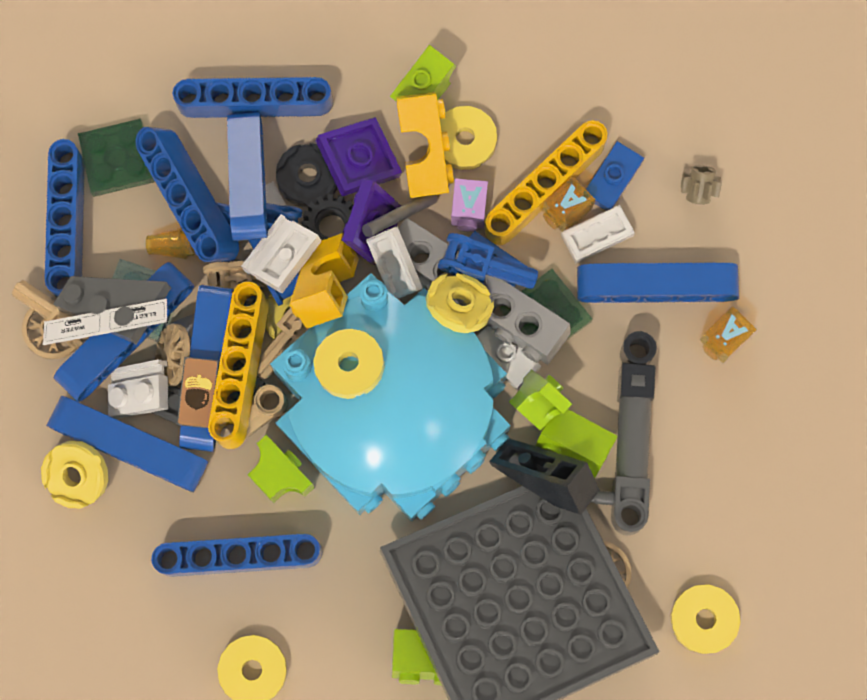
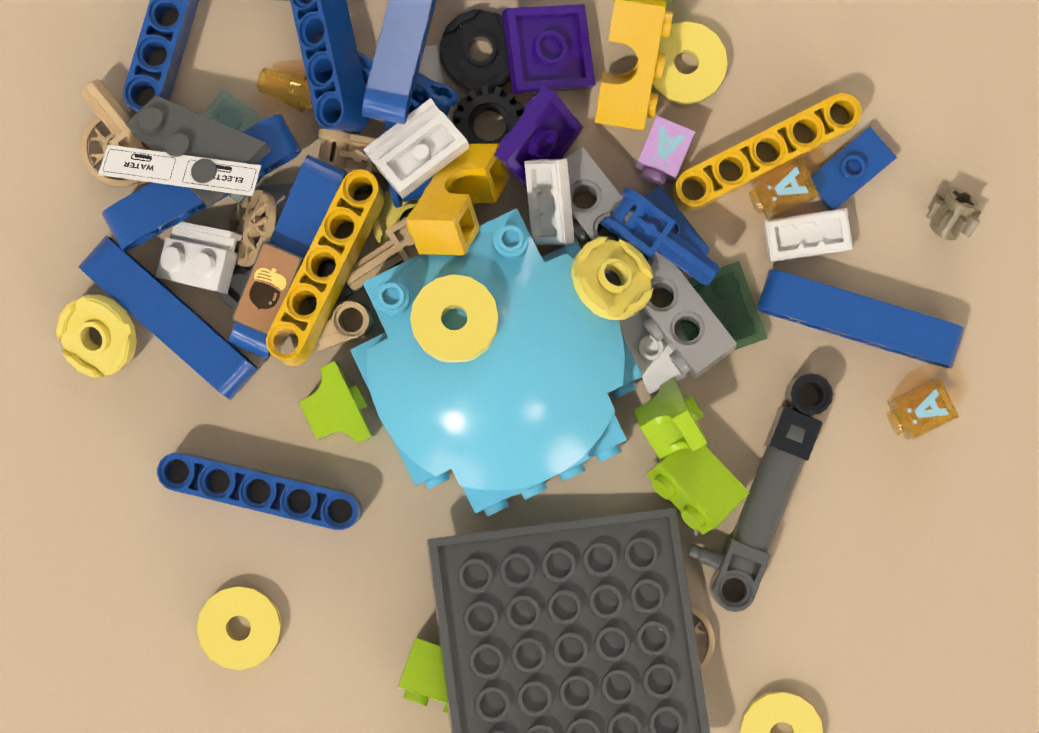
camera: 15 degrees right, 10 degrees up
(398, 214) = (571, 141): flat silver bar -> none
(548, 474) = (651, 513): black slope -> none

